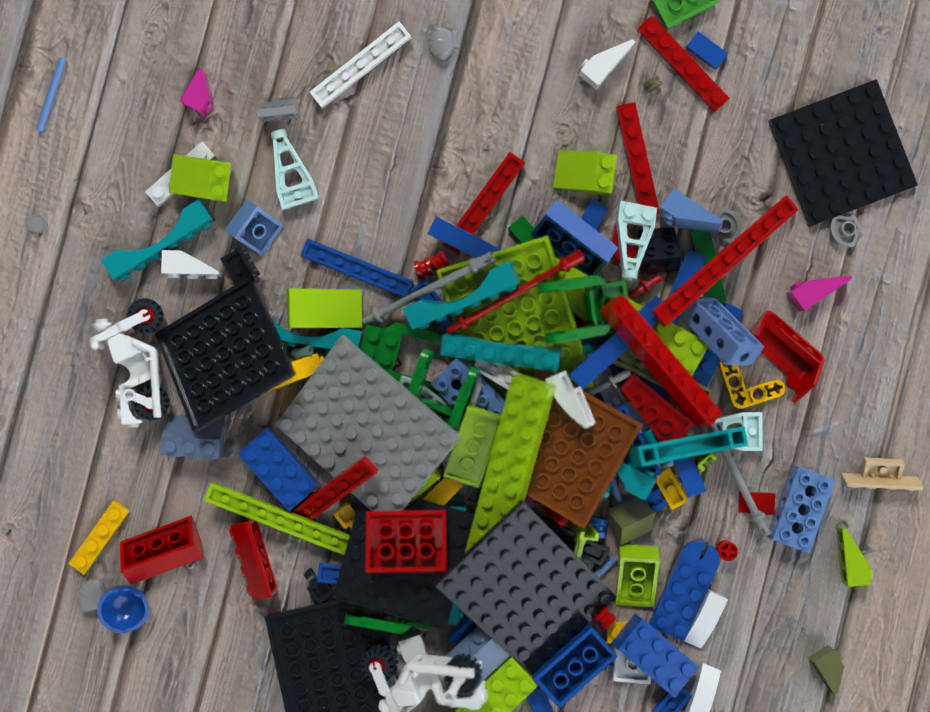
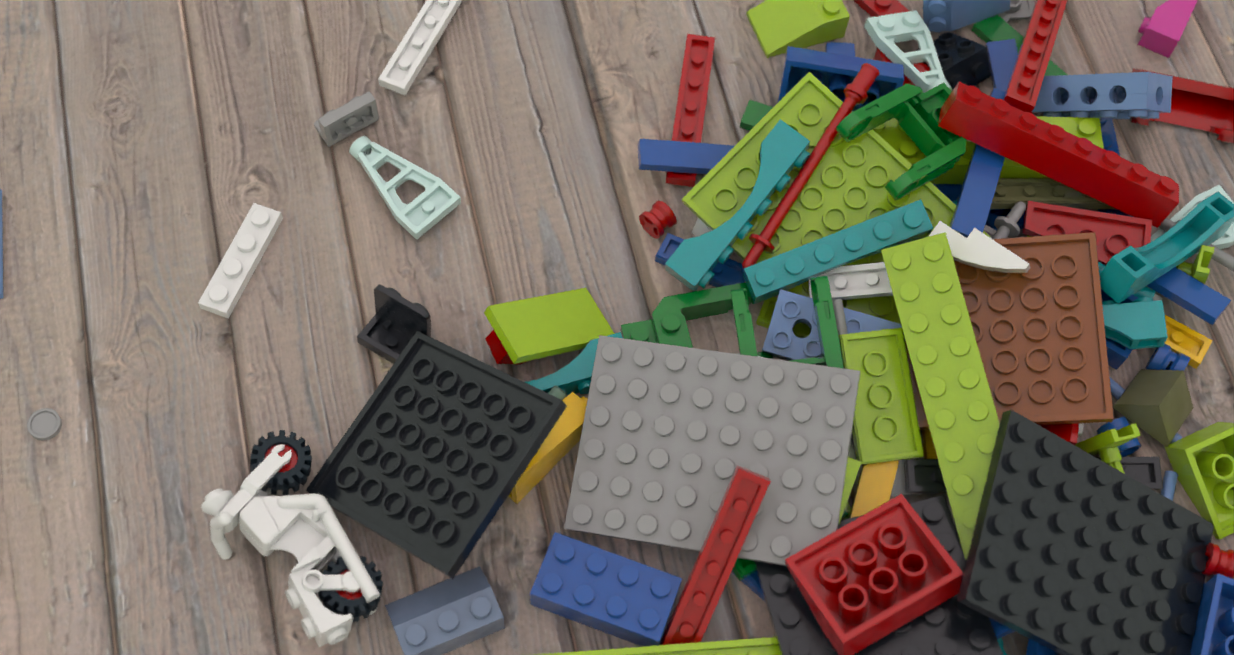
camera: 30 degrees left, 25 degrees down
(180, 263) = (311, 369): white slope -> none
(192, 220) = (212, 408): teal arch -> none
(198, 94) = (221, 148): dark pink slope -> none
(200, 177) = (277, 242): lime slope -> none
(254, 227) = (388, 264): medium blue slope -> none
(345, 515) = (750, 613): yellow plate -> none
(356, 268) = (563, 266): blue tile -> none
(439, 261) = (673, 199): red wheel -> none
(475, 266) = (733, 158): light grey bar -> none
(747, 393) = (1181, 175): yellow beam -> none

